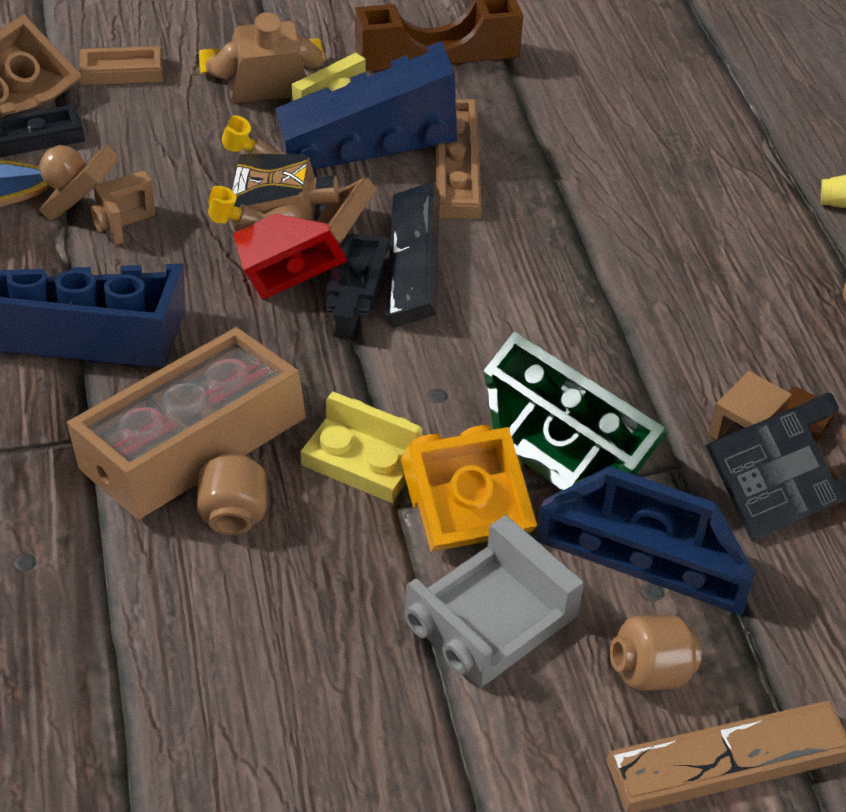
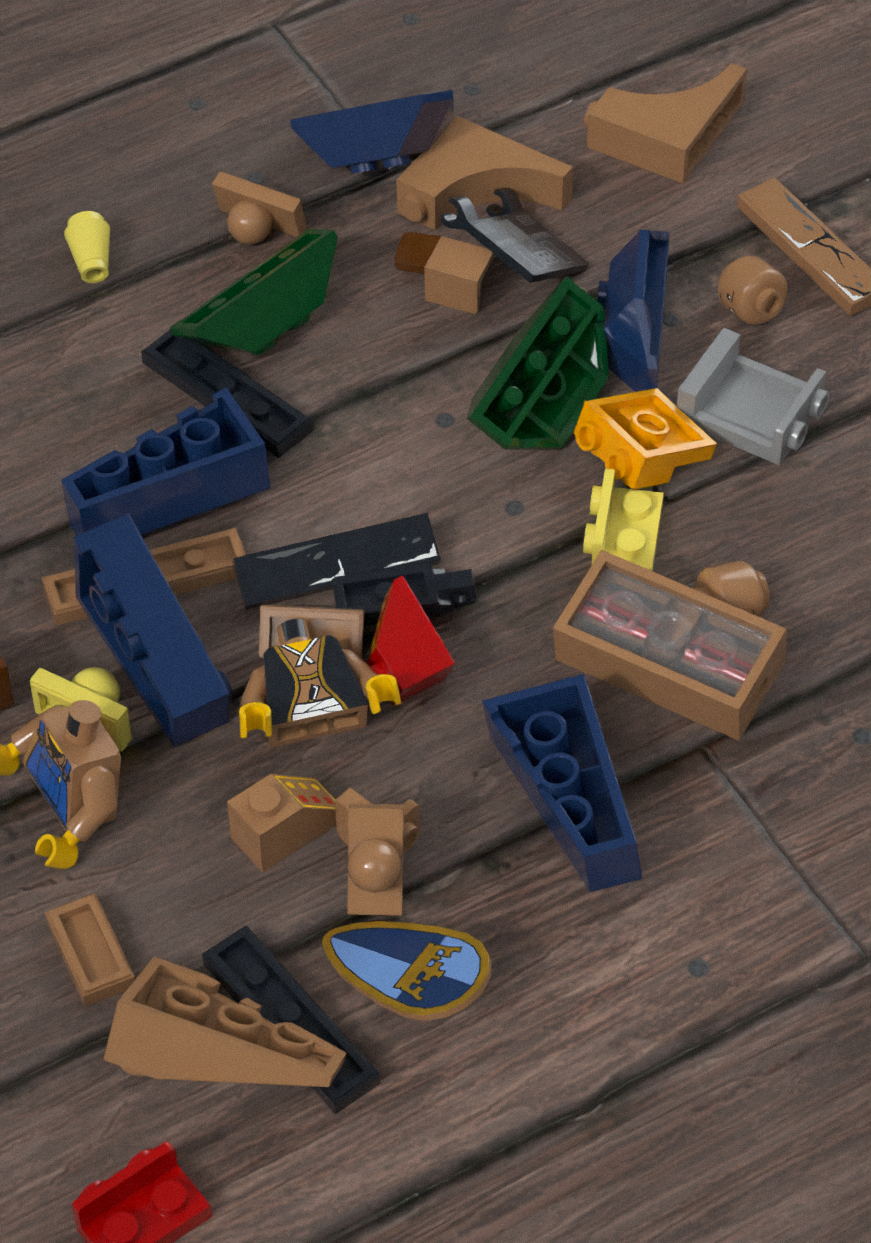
camera: 105 degrees left, 5 degrees up
(165, 157) = (279, 817): none -> medium nougat slope
(546, 173) = (172, 474): none -> dark blue wedge
(650, 242) = (204, 373): none -> black tile
(736, 259) = (267, 298): none -> dark green wedge

